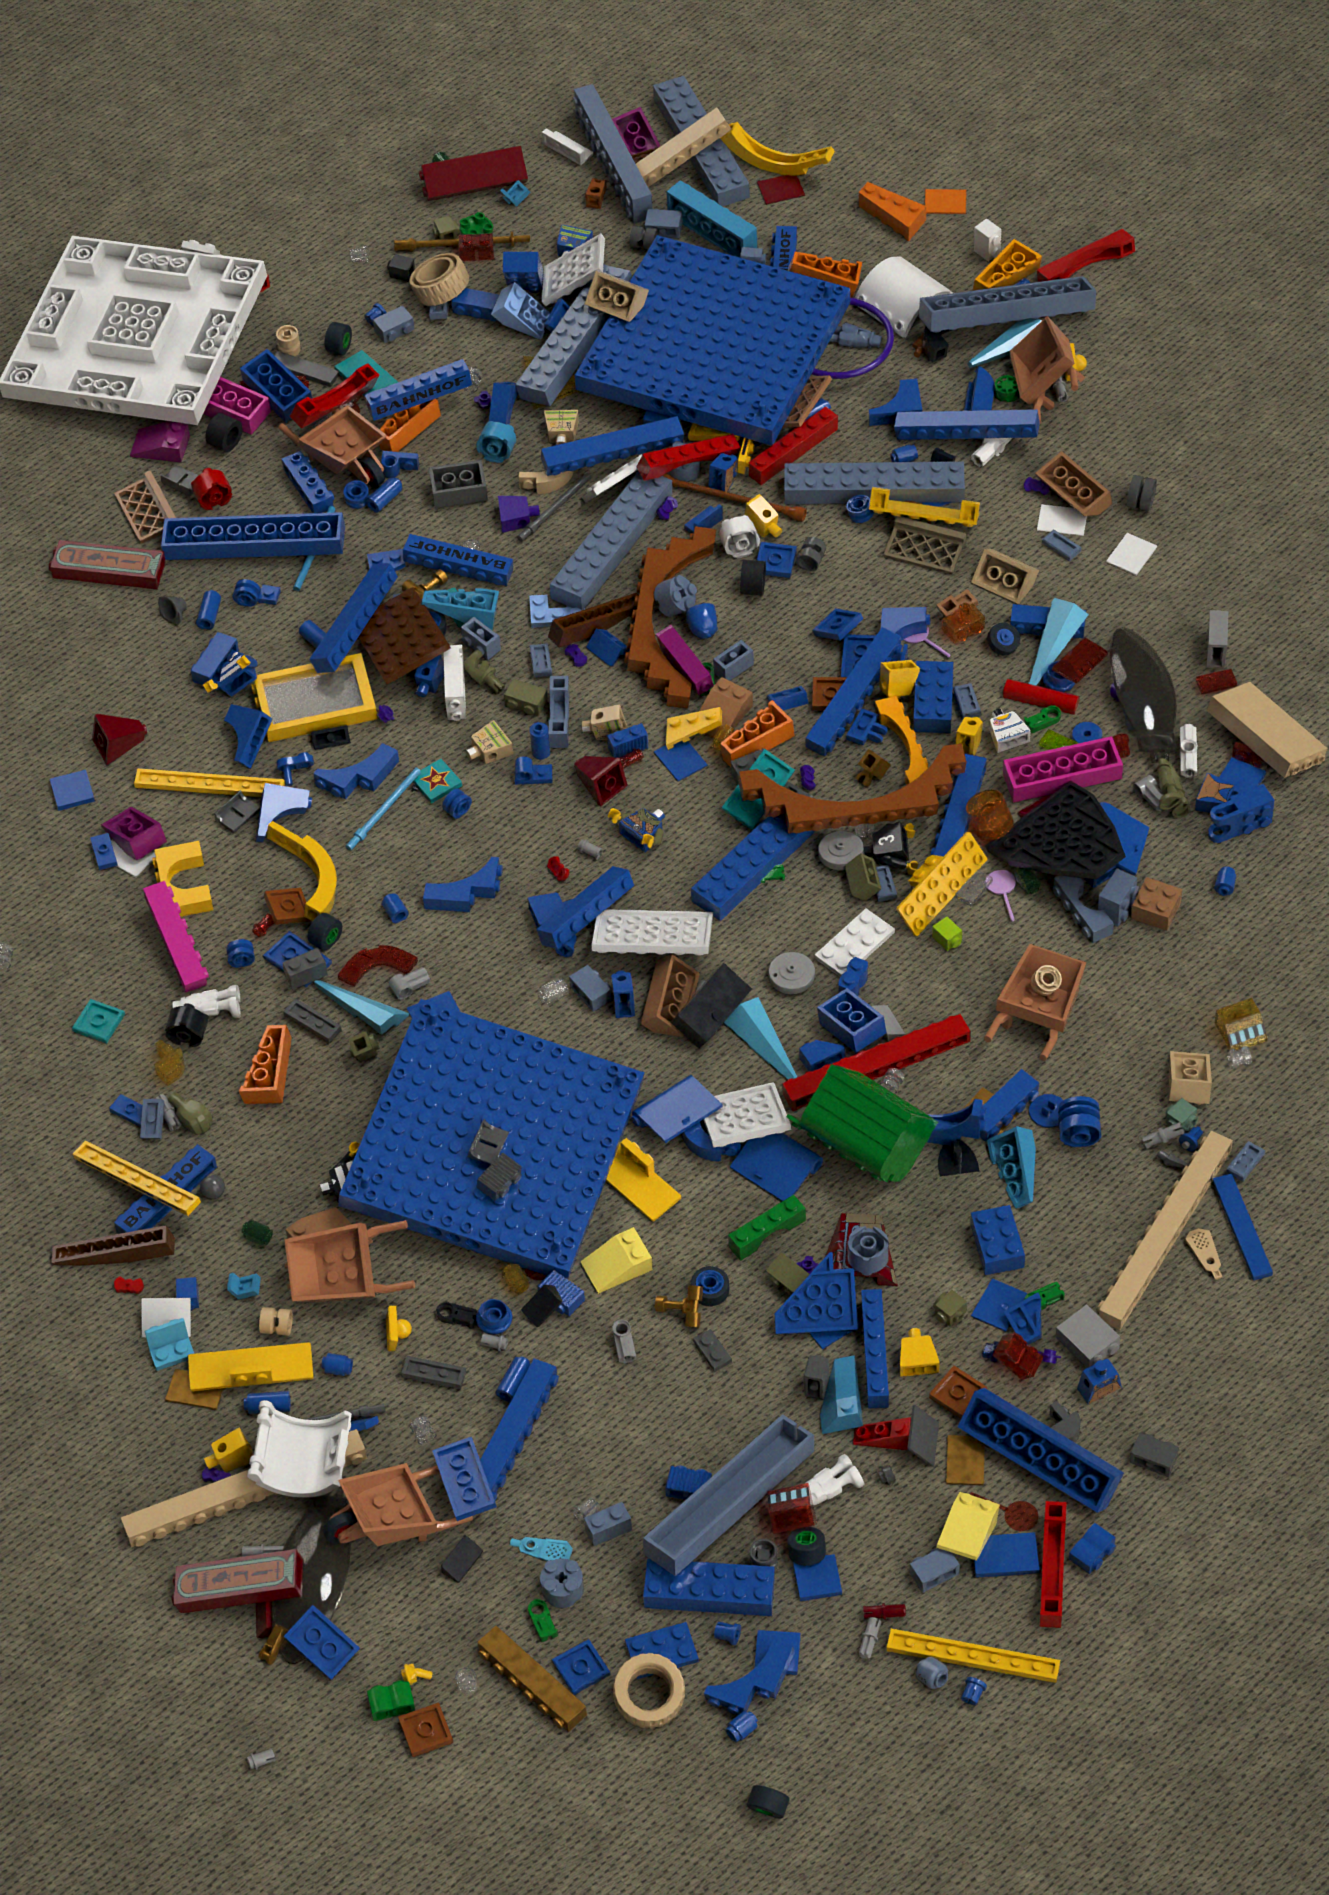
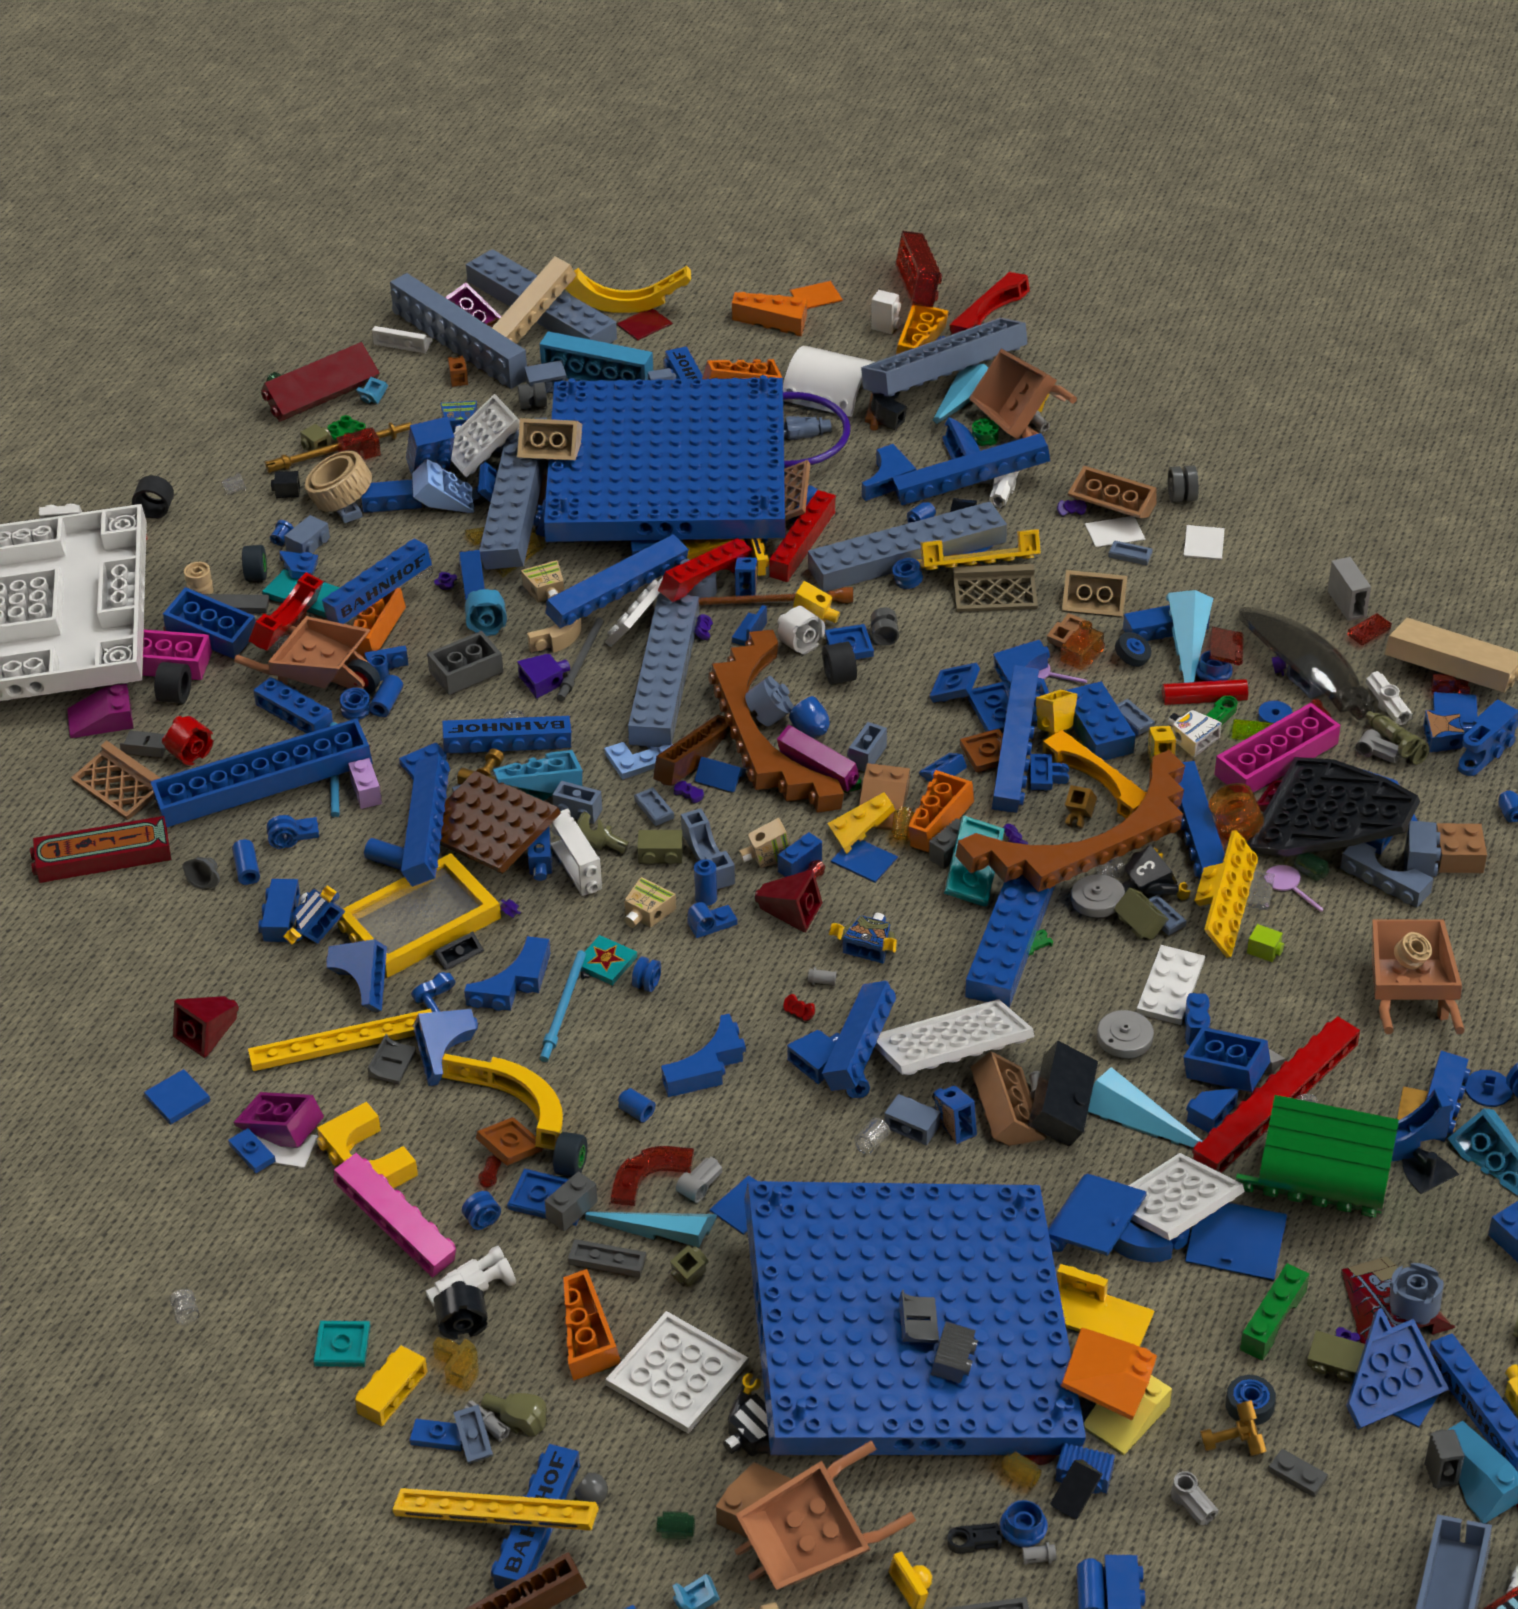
camera: 25 degrees left, 10 degrees down
(114, 1064) = (390, 1385): none -> yellow brick
(287, 250) = (153, 507): none -> black piece
(316, 1122) = (677, 1372): none -> white plate
(328, 569) = (365, 783): none -> lavender brick
(376, 349) = (299, 563): none -> blue wing
(611, 1229) = (1109, 1372): none -> orange slope
(1036, 205) = (918, 269): none -> clear red brick

